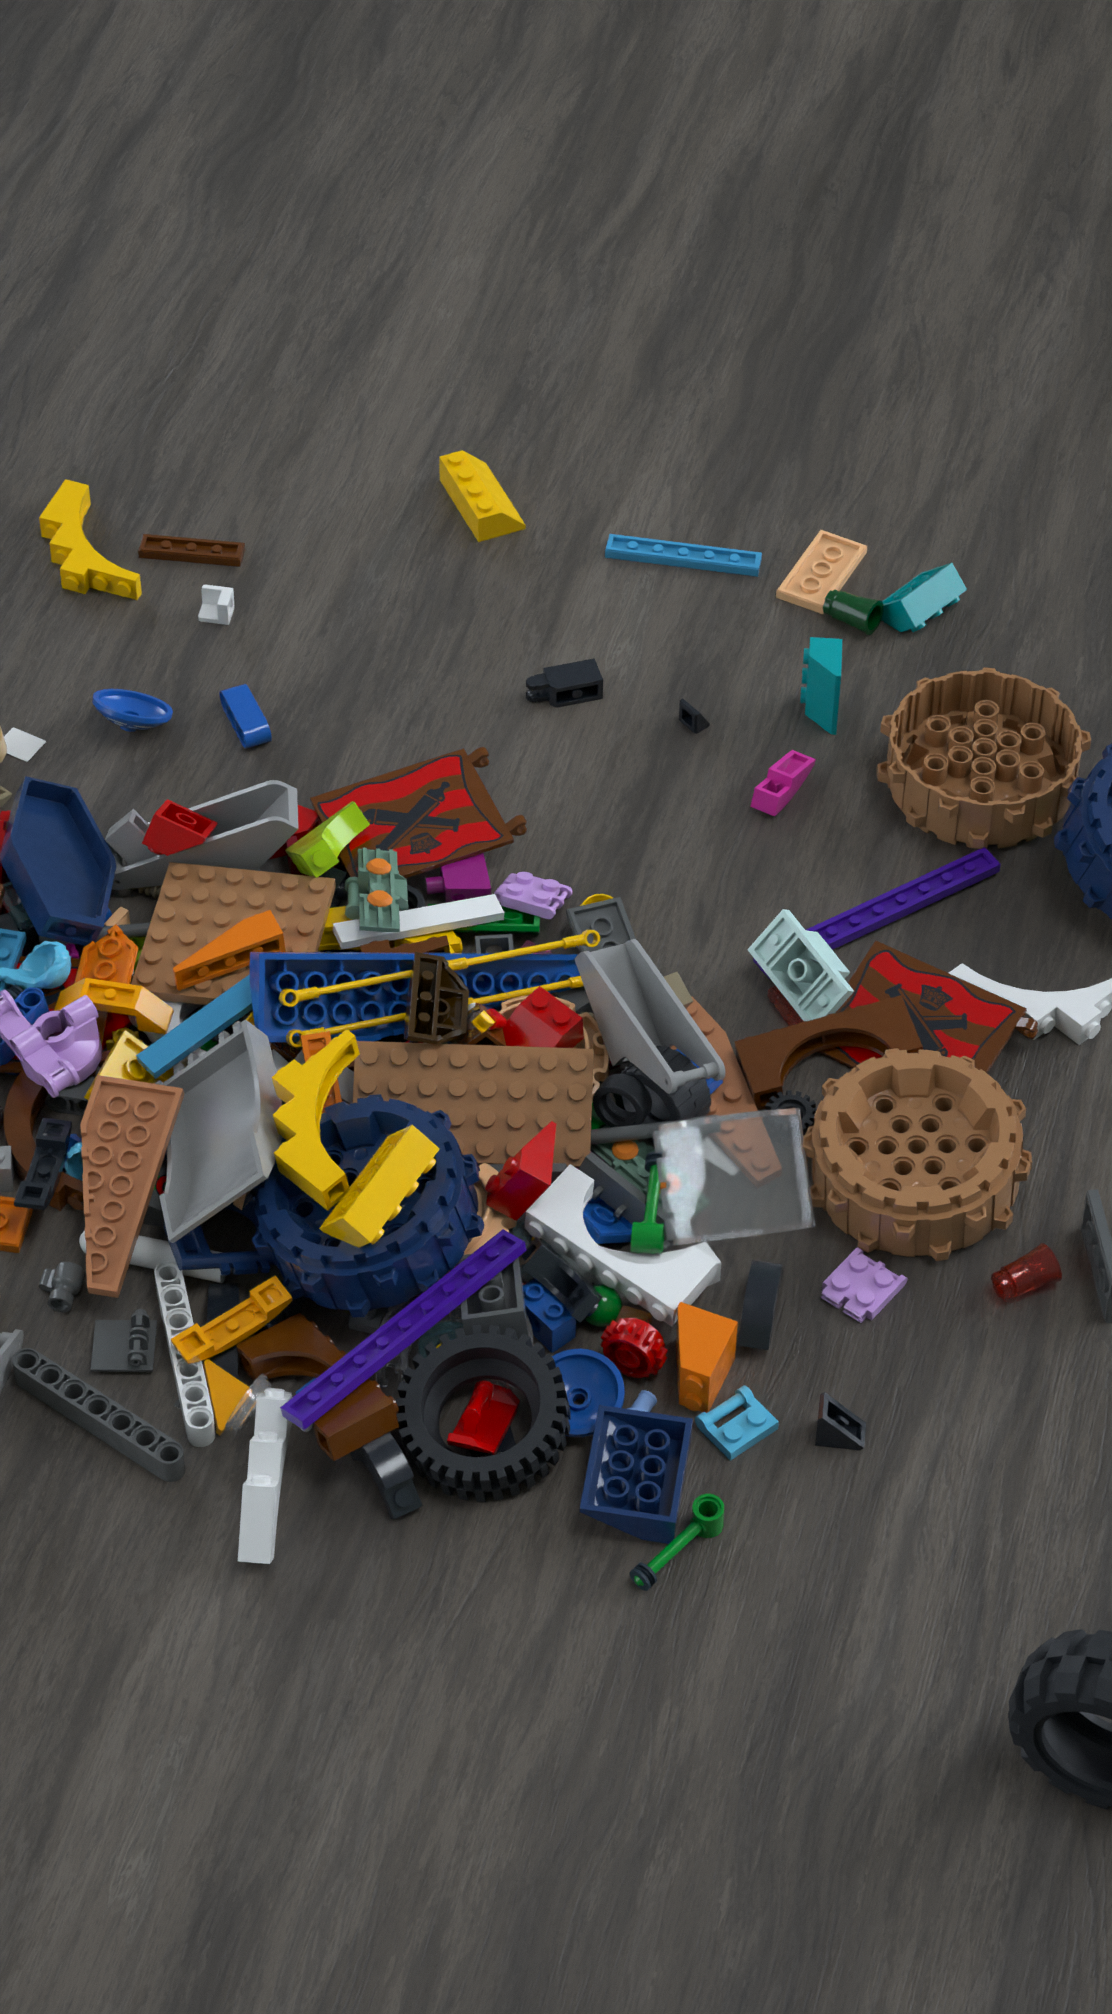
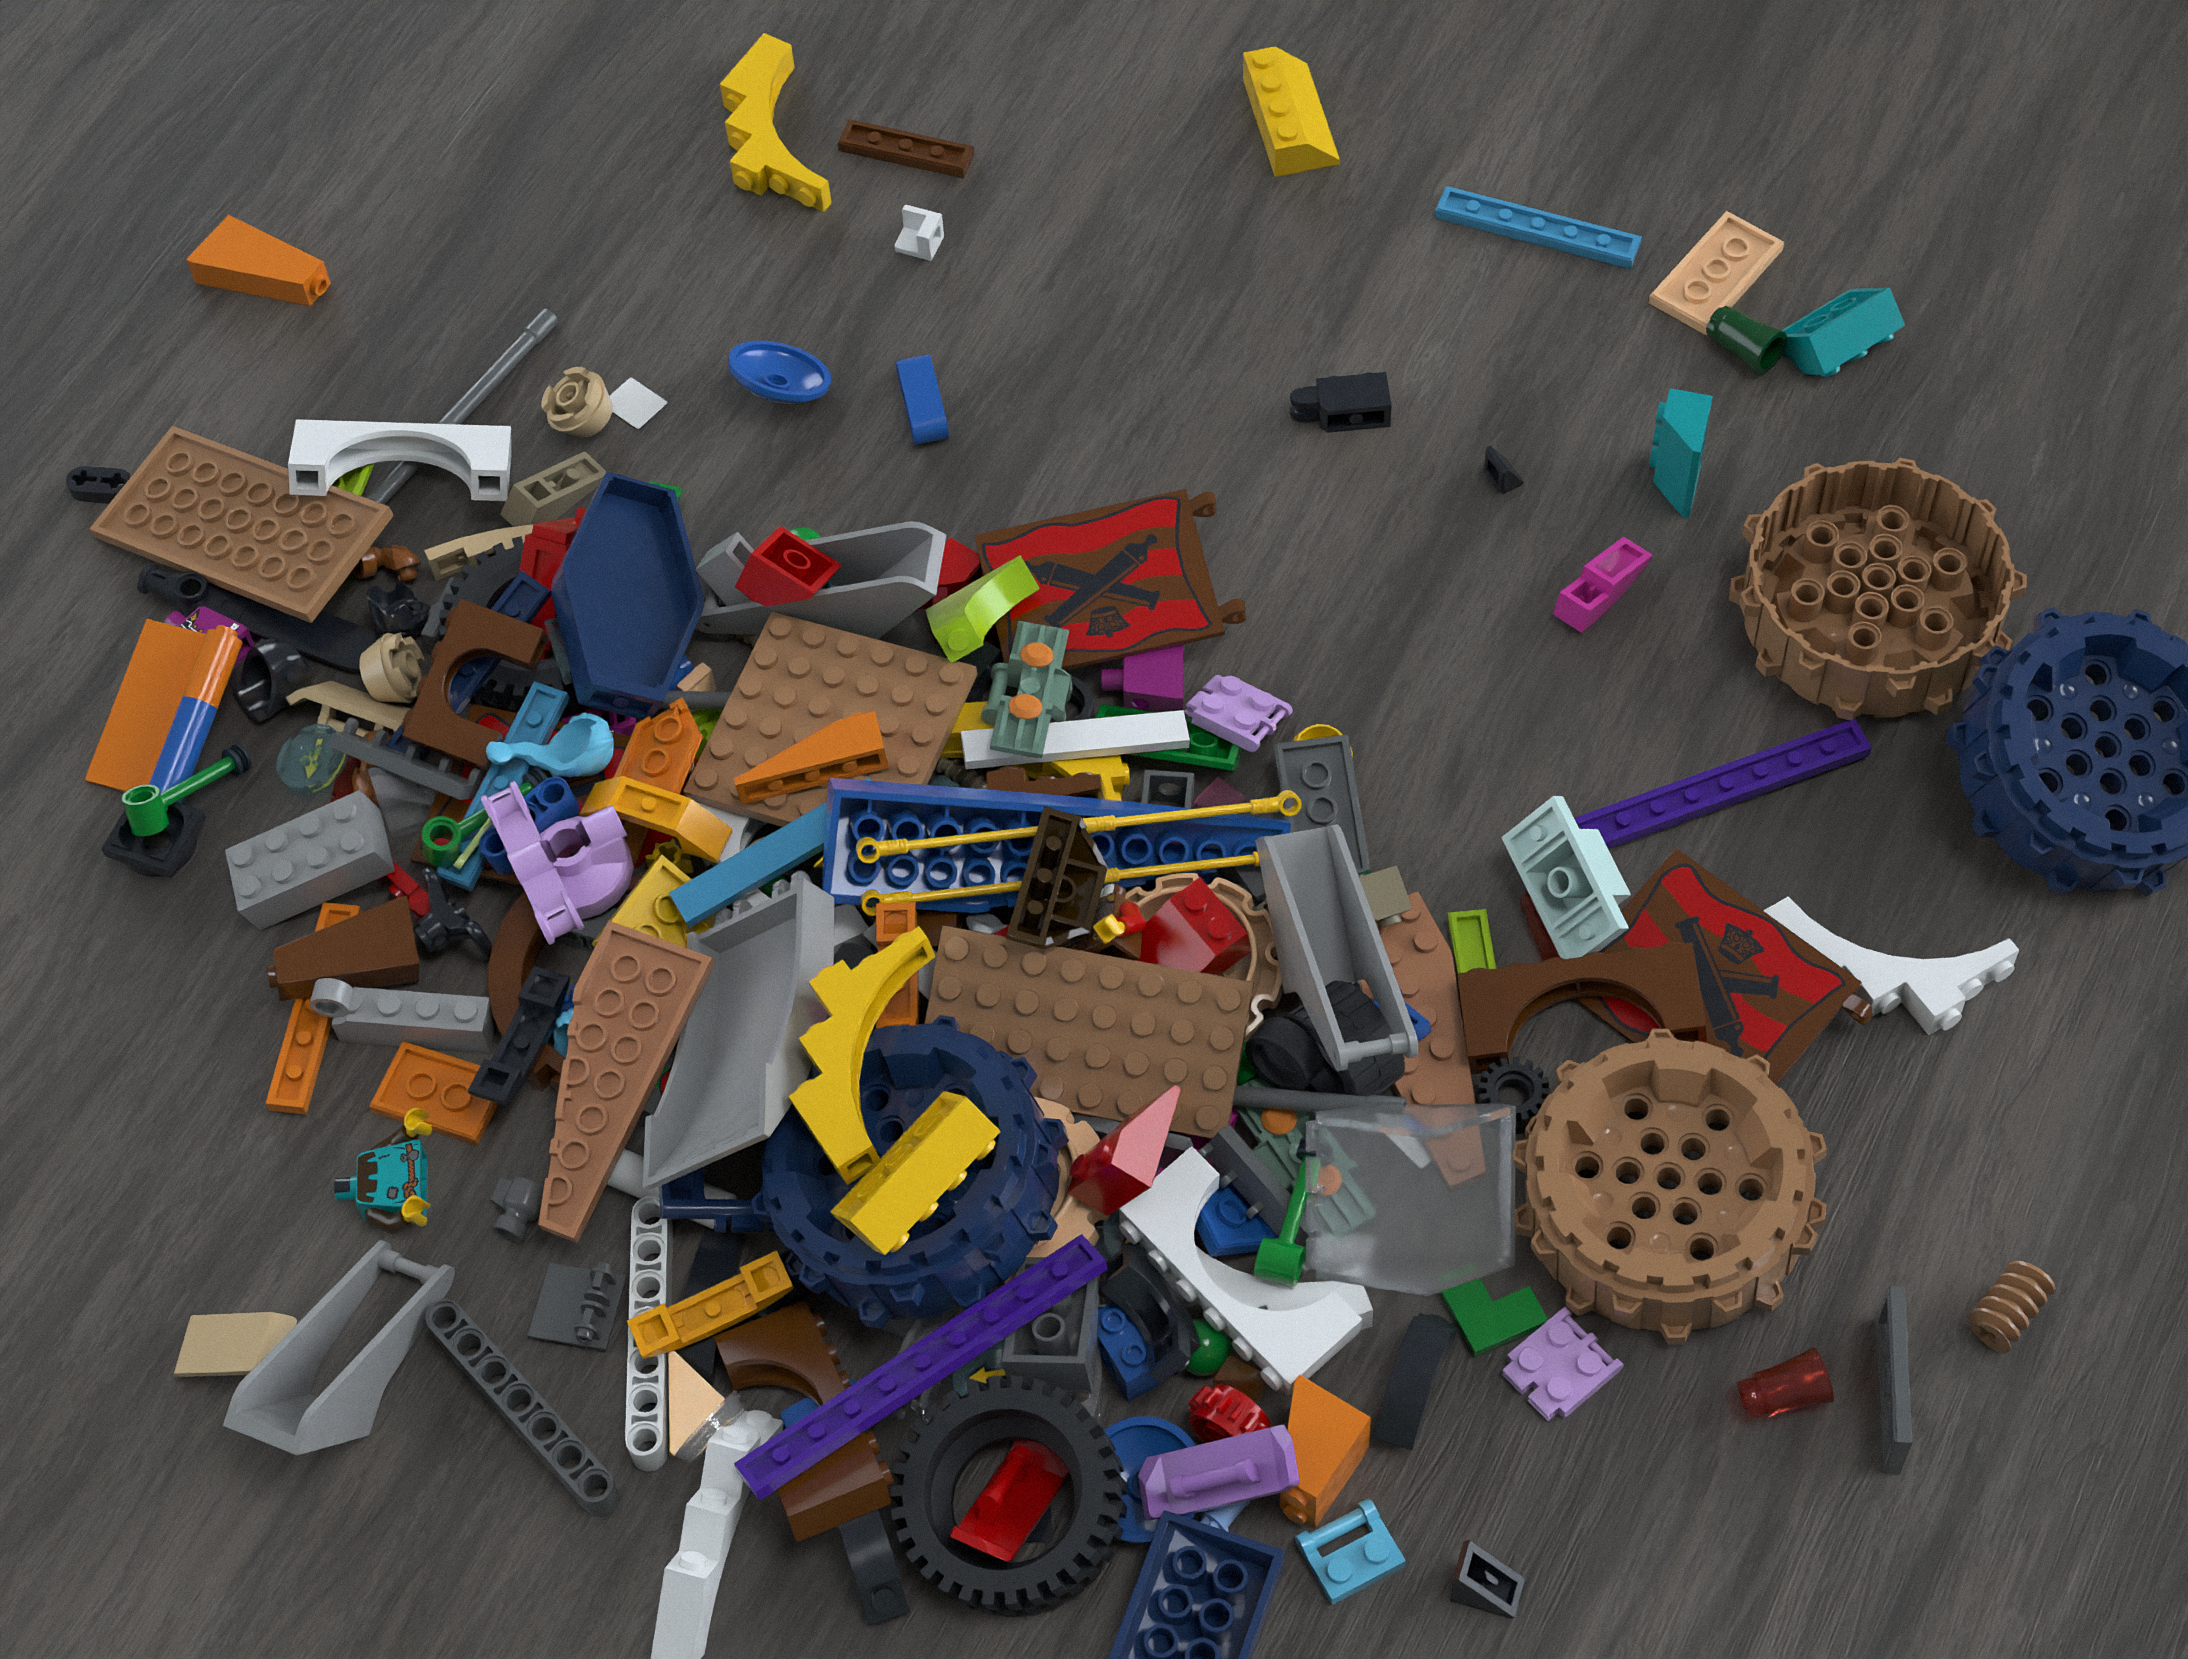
camera: 15 degrees right, 10 degrees up
(636, 1373) = (1219, 1473): none -> medium lavender piece
(736, 1022) = (1471, 940): none -> lime tile
(802, 1265) = (1492, 1323): none -> green tile

